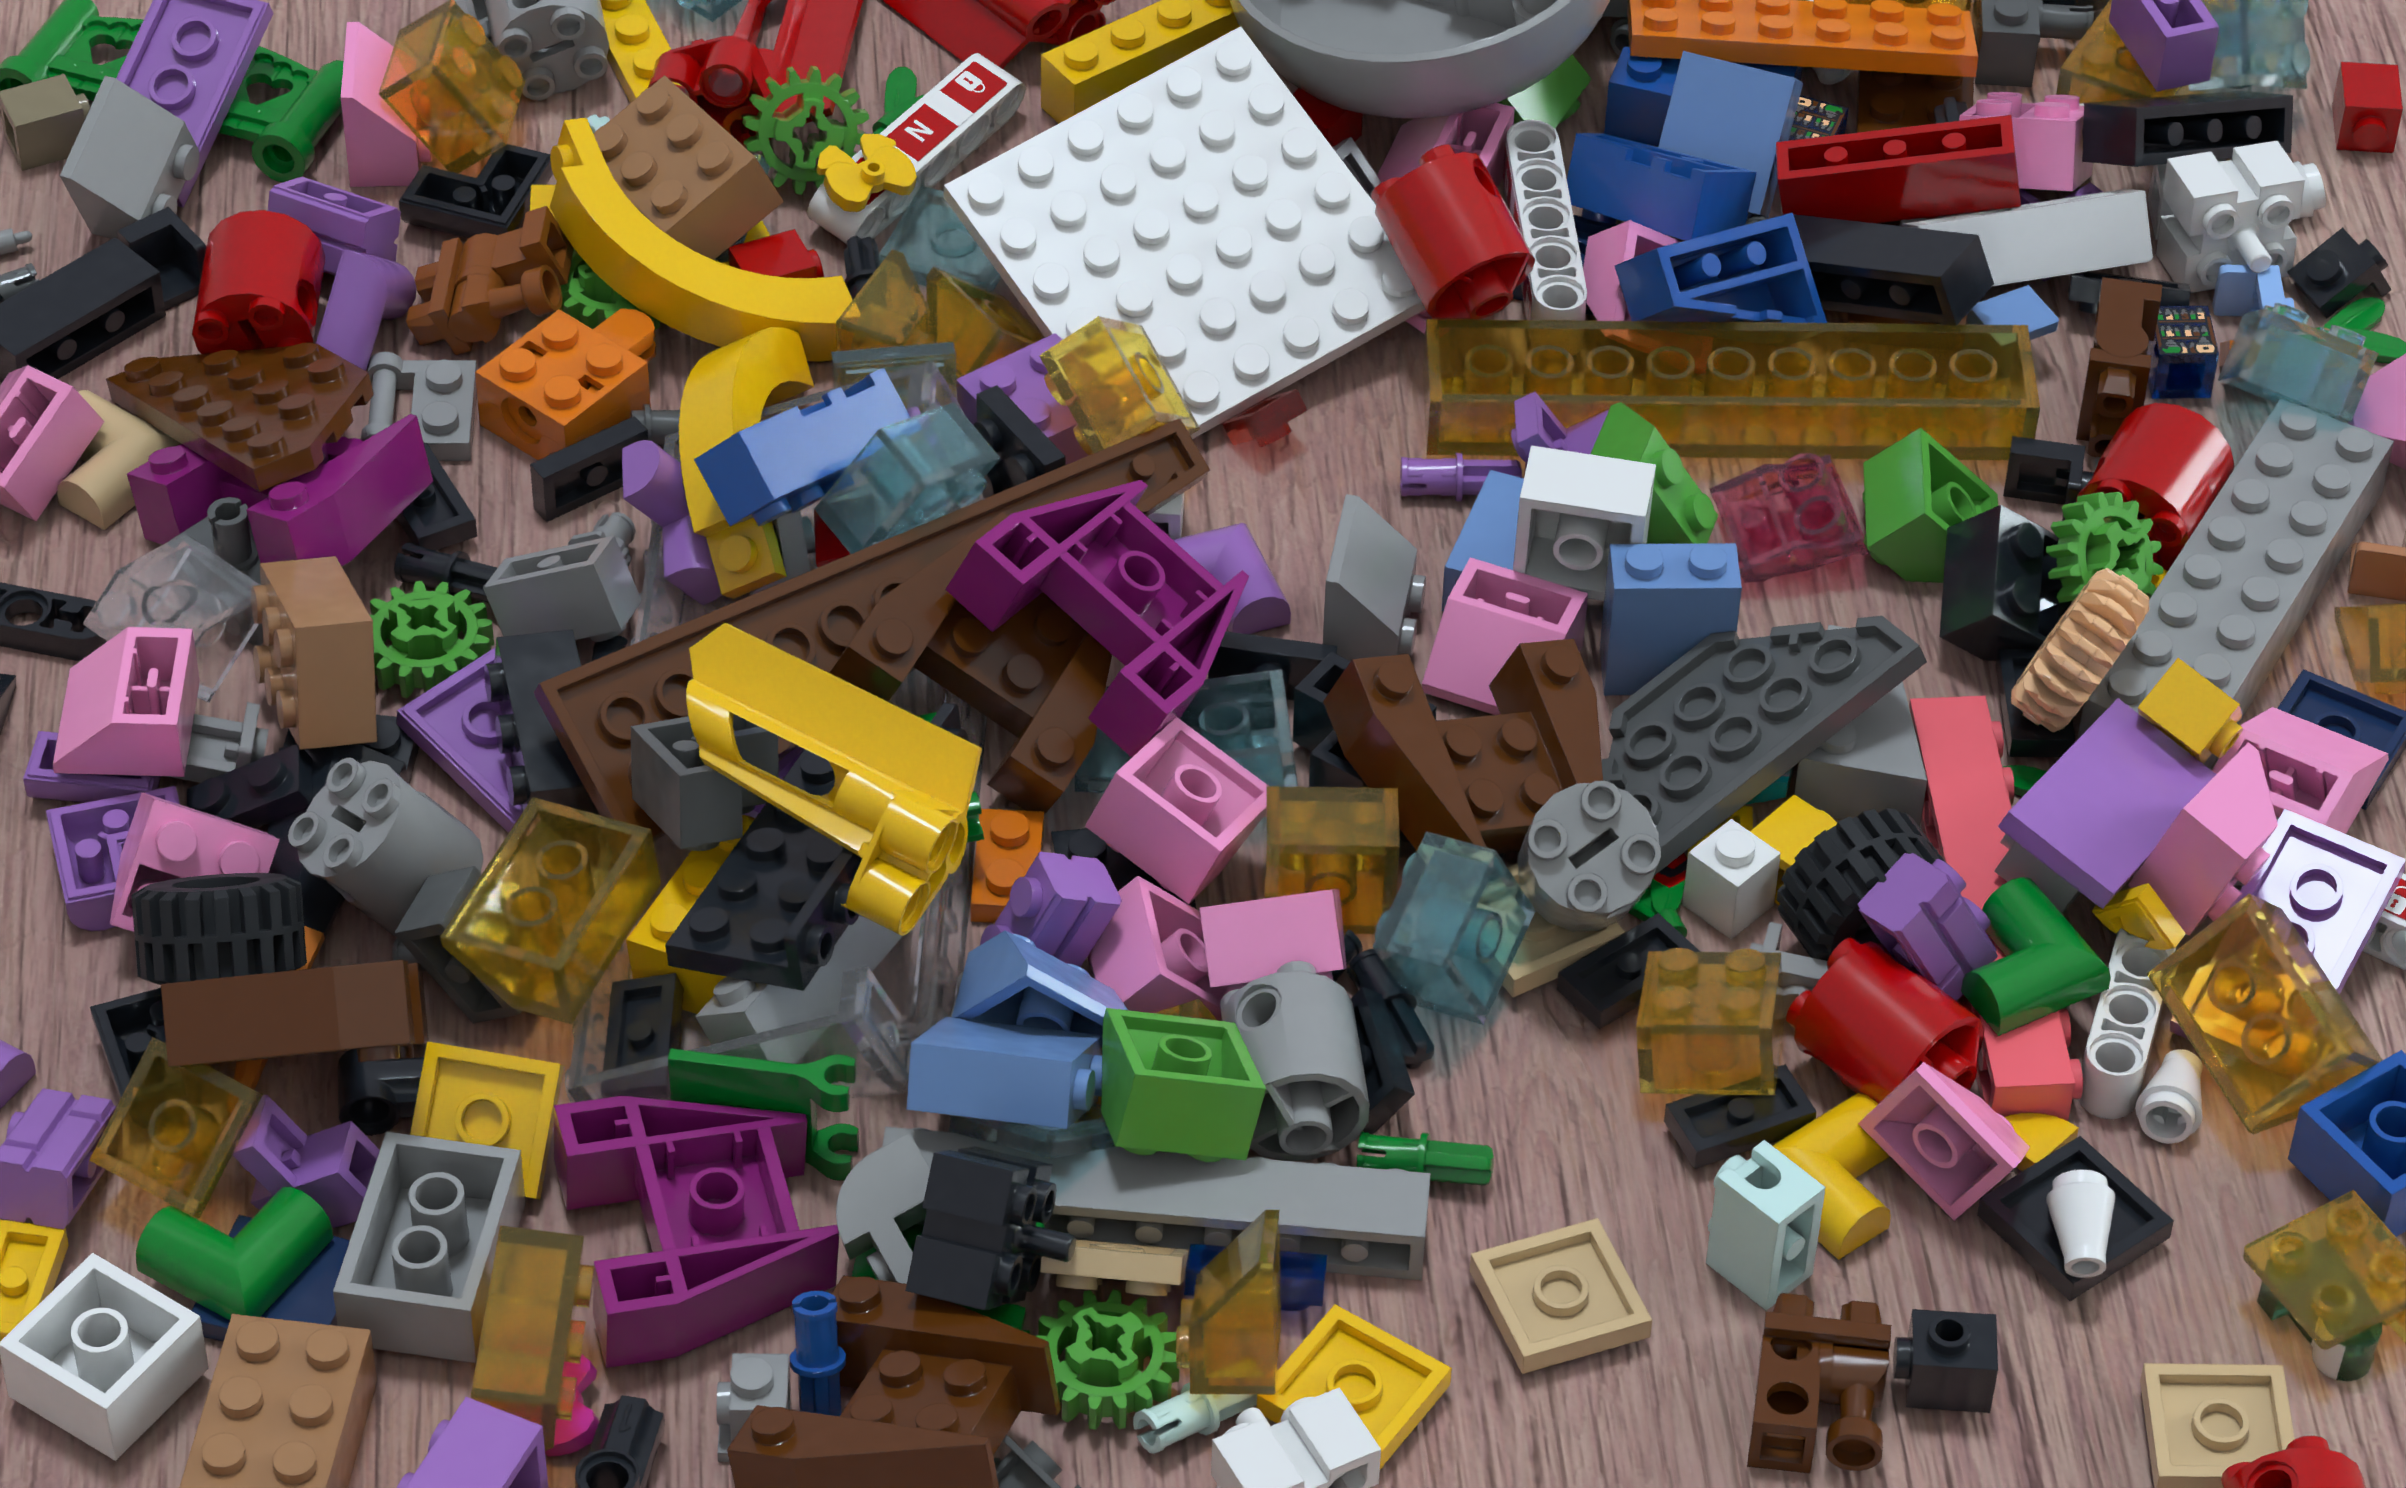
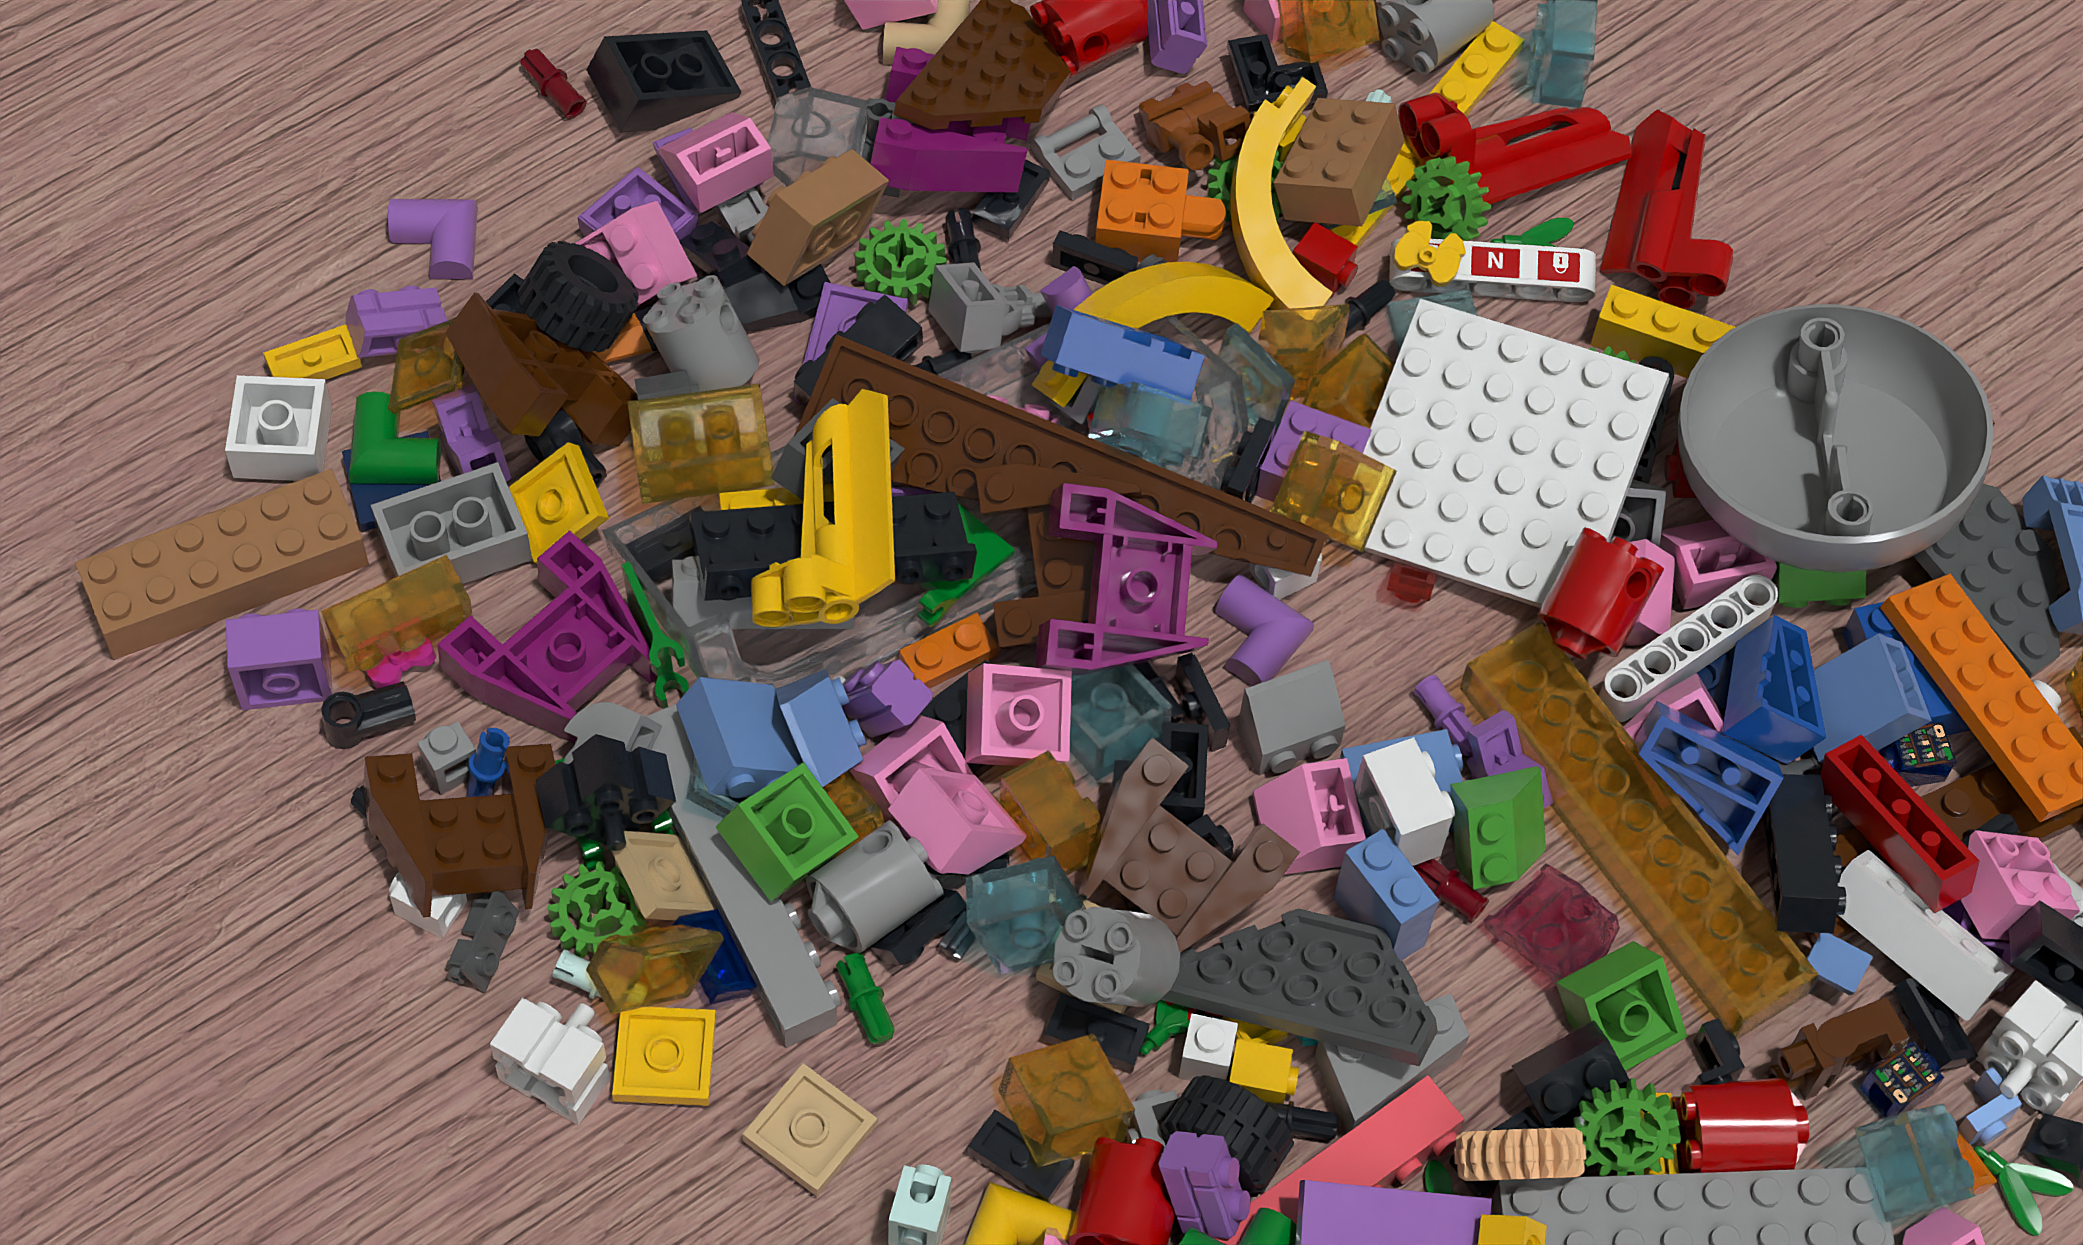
camera: 55 degrees right, 15 degrees up
(362, 296) = (1120, 67): medium lavender brick -> none

